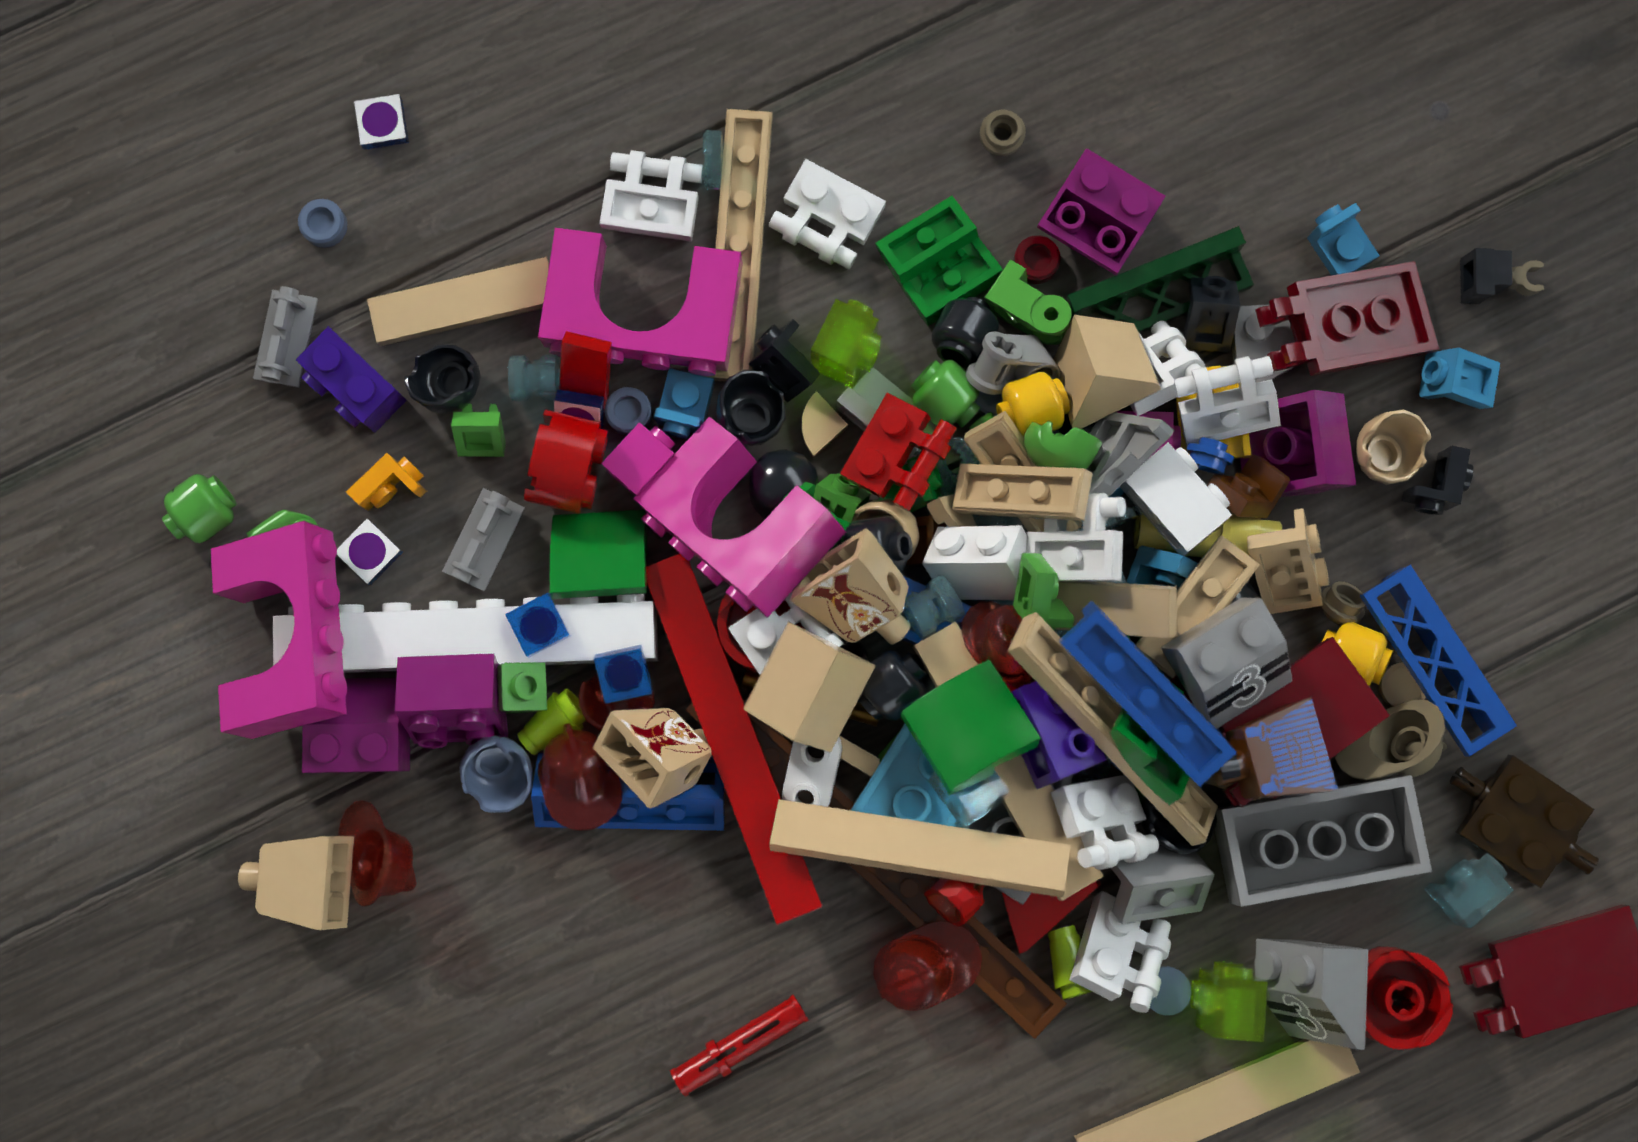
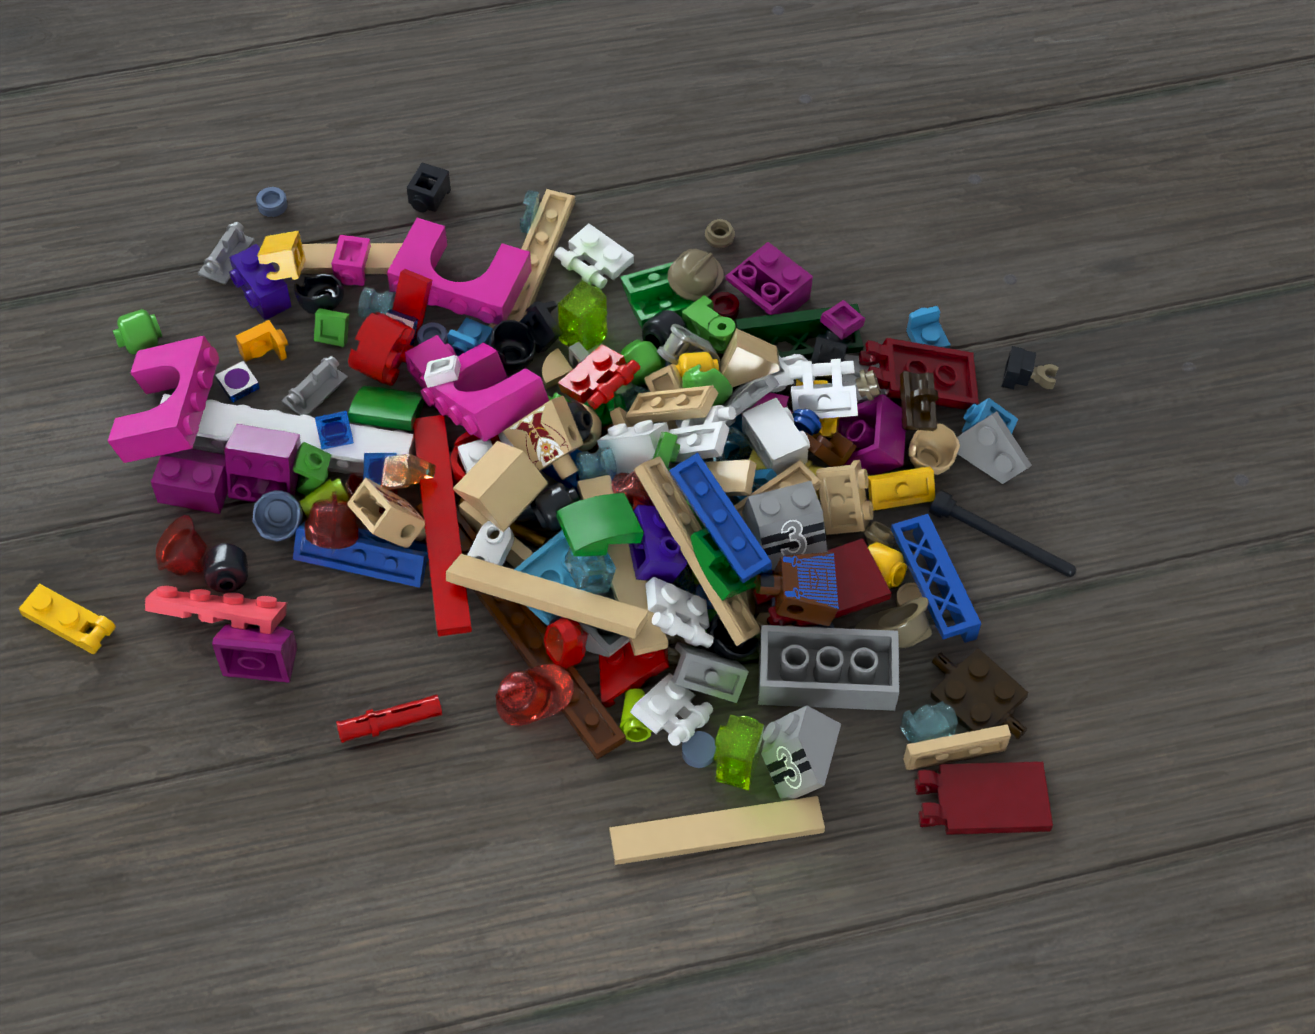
camera: 10 degrees right, 25 degrees down
(250, 992) = (66, 618): none -> yellow plate
(303, 881) = (128, 550): tan torso -> none
(374, 341) = (286, 251): none -> yellow hinge
(381, 122) = (327, 156): tile -> none
(448, 874) = (225, 568): none -> black head
(473, 310) = (351, 259): none -> dark pink bracket
(476, 938) = (241, 611): none -> coral wing
(529, 993) = (255, 654): none -> magenta slope
(550, 138) = (426, 193): none -> black brick
(649, 208) = (481, 231): white plate -> none
(657, 681) = (405, 469): none -> clear orange bracket
(668, 494) = (442, 371): none -> white tile
(985, 217) = (695, 274): none -> dark tan piece
(1226, 265) = (842, 319): none -> magenta tile
(1291, 380) = (868, 384): none -> dark tan plate
(1361, 518) = (901, 488): none -> yellow plate
(1367, 390) = (918, 401): none -> dark brown hips
(1422, 531) = (946, 506): none -> black piece
(1424, 995) = (860, 778): red brick -> none
(1450, 479) = (961, 485): black bracket -> none
(1480, 423) = (993, 449): none -> light grey wing
(1515, 914) = (956, 747): none -> tan tile

